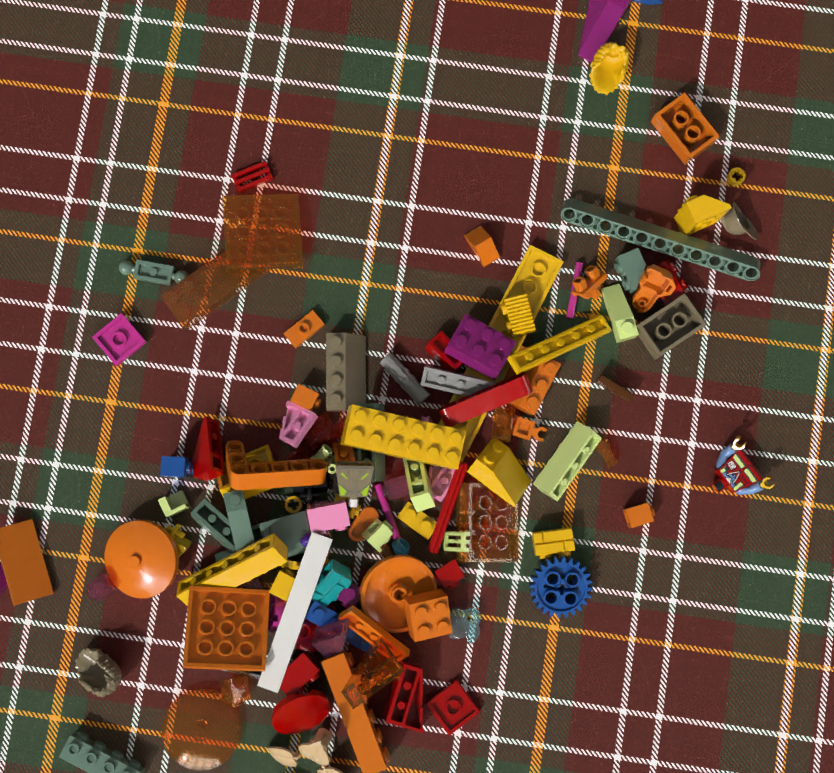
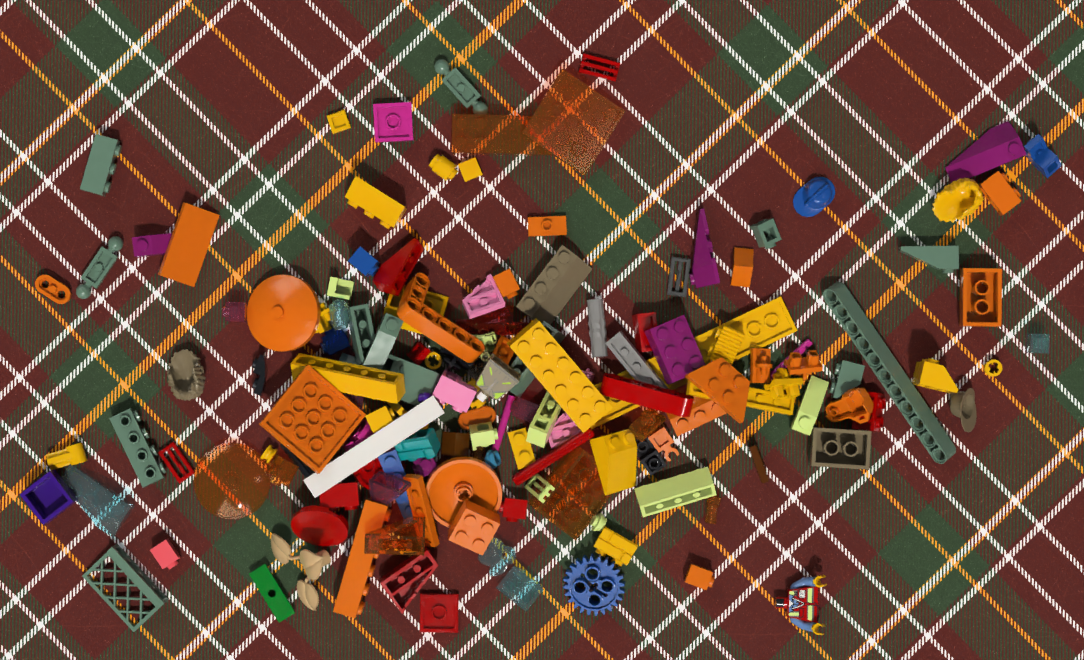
camera: 35 degrees right, 5 degrees up
(75, 372) = (338, 122): none -> yellow tile
(150, 413) = (374, 203): none -> yellow slope
(156, 617) = (260, 368): none -> black slope
(160, 754) = (185, 475): none -> red tile
(186, 344) = (443, 167): none -> yellow brick
(187, 525) = (339, 314): none -> clear light blue brick
(201, 549) = (334, 341): none -> clear blue brick
(209, 331) = (470, 169): none -> yellow tile
(215, 683) = (269, 453): none -> yellow bush
(277, 507) = (418, 353): none -> red tile
(361, 558) = (455, 444): none -> reddish brown brick
(430, 292) = (680, 260): none -> dark grey tile
(452, 265) = (703, 265): none -> magenta wedge
(480, 205) = (769, 228): none -> sand green brick
(495, 151) = (814, 196): none -> blue piece
(502, 635) = (520, 588): none -> clear light blue bracket
(525, 449) = (649, 456): none -> black slope
(525, 533) = (598, 522): none -> yellowish green plate
(542, 346) = (723, 386): none -> orange wing
(556, 310) = (760, 365): none -> orange hips
(584, 310) = (783, 381): none -> yellow hips
(625, 125) = (938, 257): none -> sand green slope
(637, 40) = (1000, 193): none -> orange brick
(756, 131) = (1038, 343): none -> clear light blue brick

